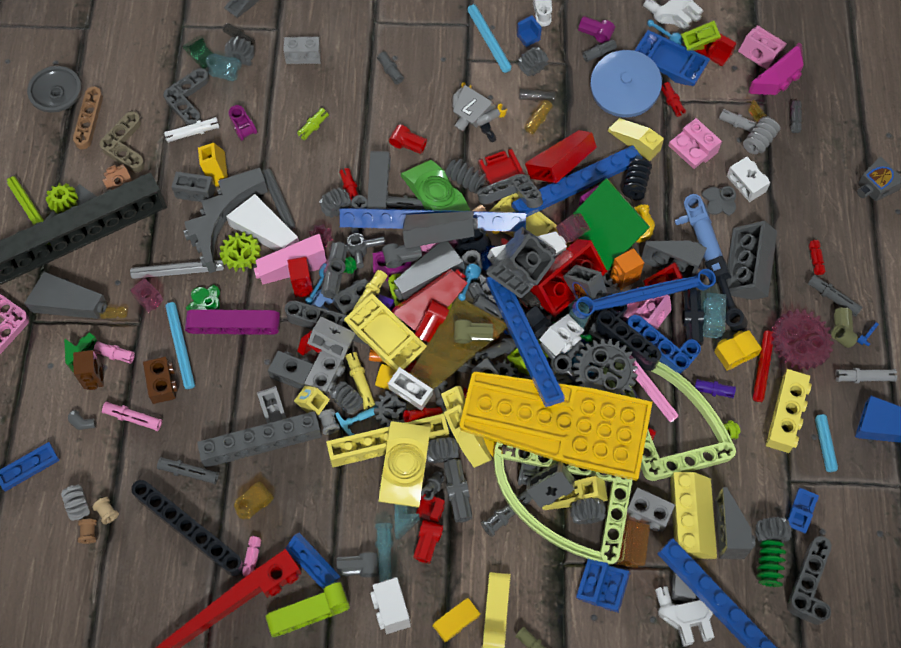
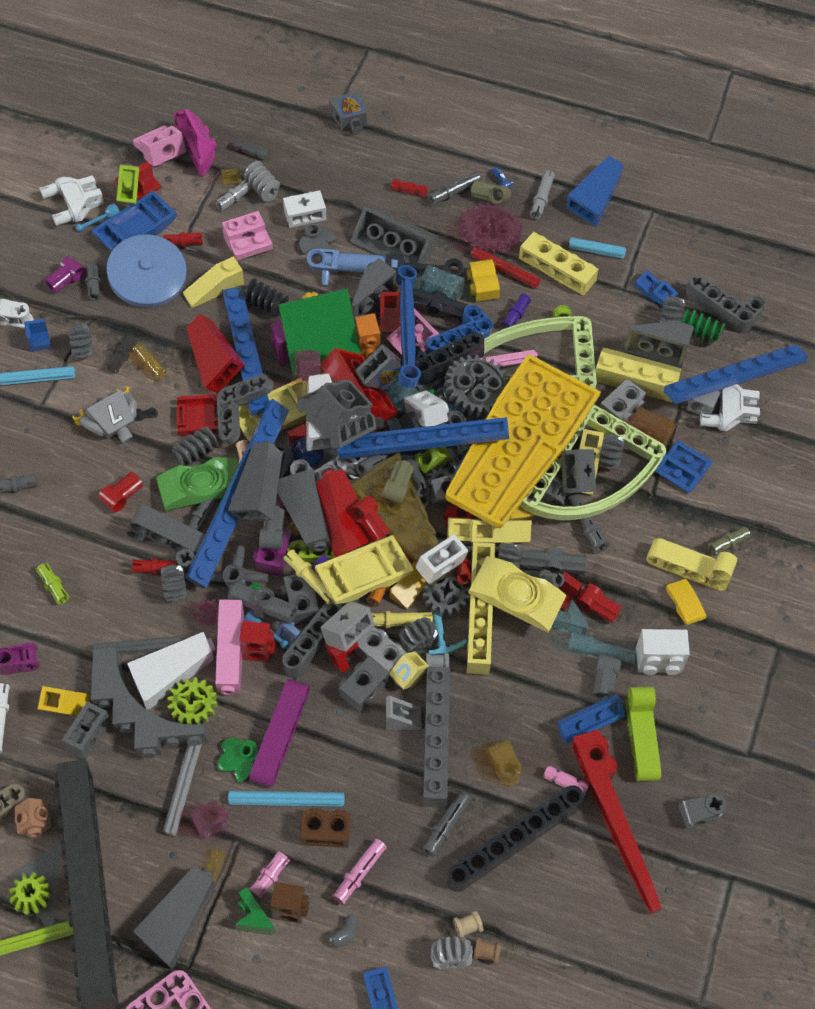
camera: 75 degrees left, 5 degrees down
(472, 275) = (323, 465): dark azure hinge -> none

